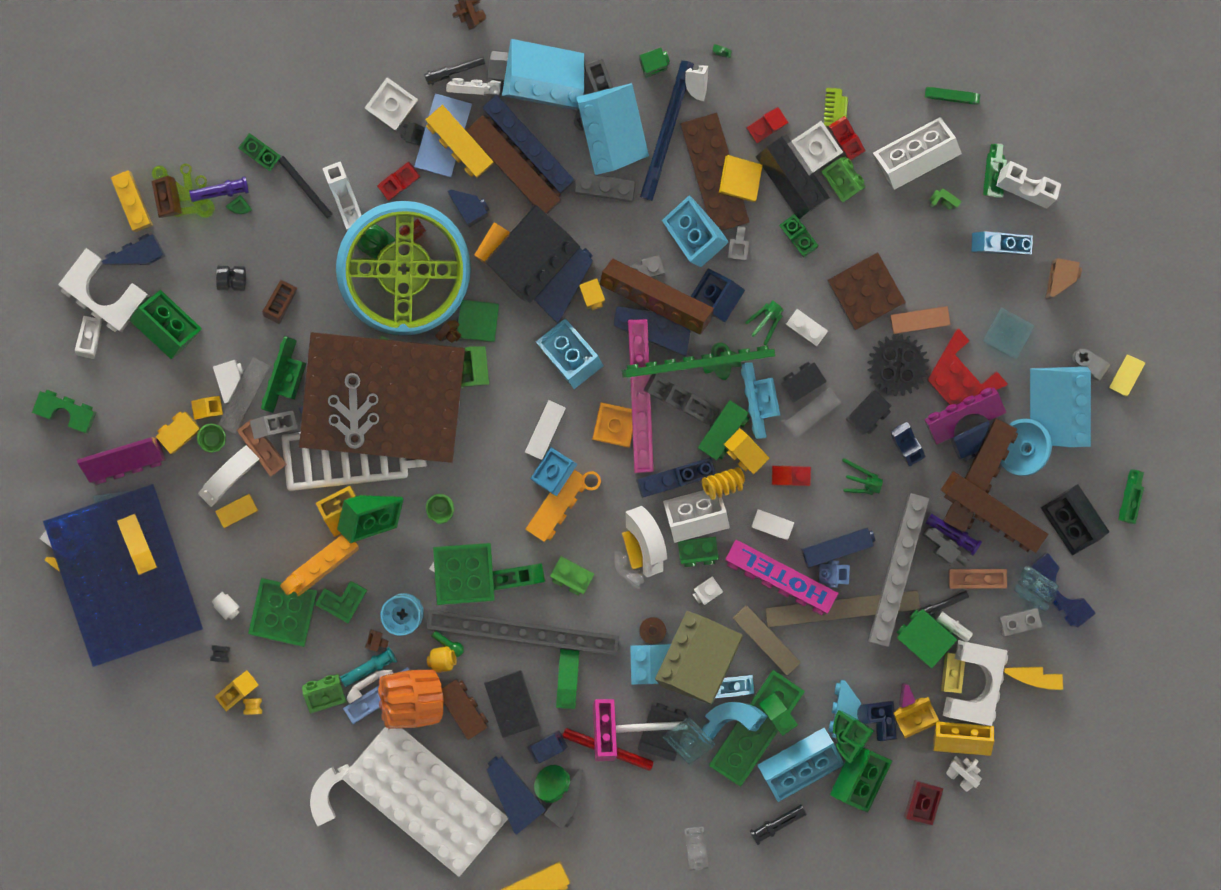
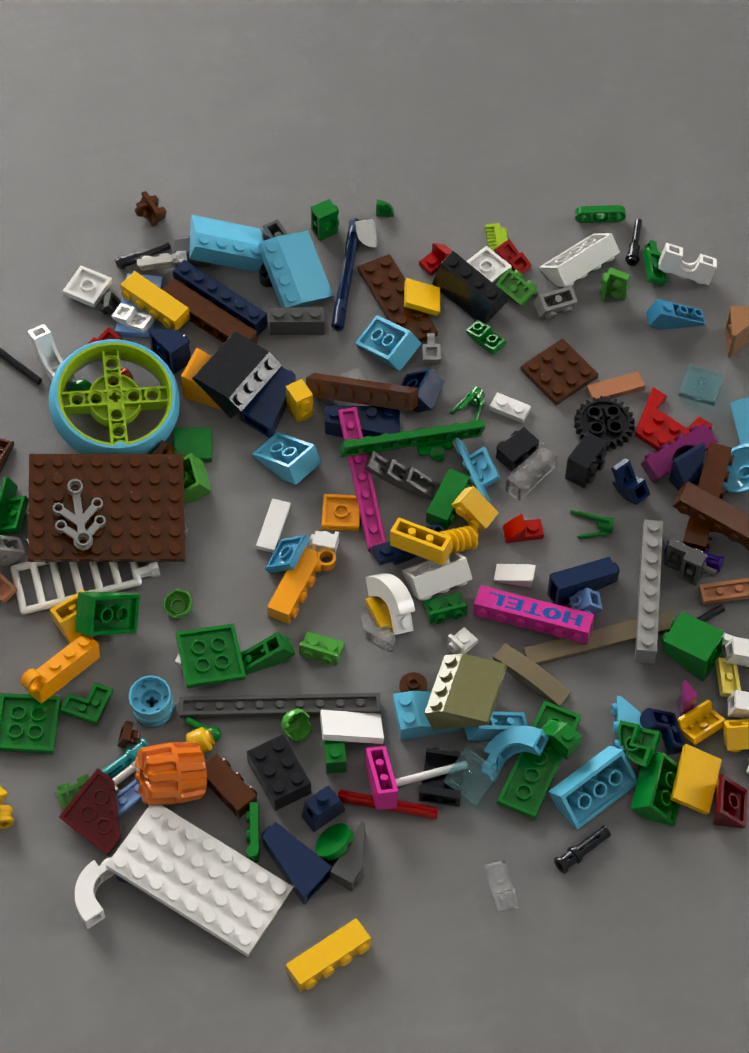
camera: 10 degrees left, 30 degrees down
(337, 719) = (95, 812): none -> dark red plate
(434, 156) = (132, 319): none -> white slope
(479, 760) = (252, 834): none -> green plate
(535, 658) = (296, 725): none -> bright green hair
(586, 670) = (351, 726): none -> white tile
(592, 460) = (324, 540): none -> white brick
(684, 489) = (420, 541): none -> yellow brick
(879, 209) = (555, 302): none -> light grey brick
(897, 773) = (696, 779): none -> yellow tile
(976, 153) = (632, 257): none -> black pin

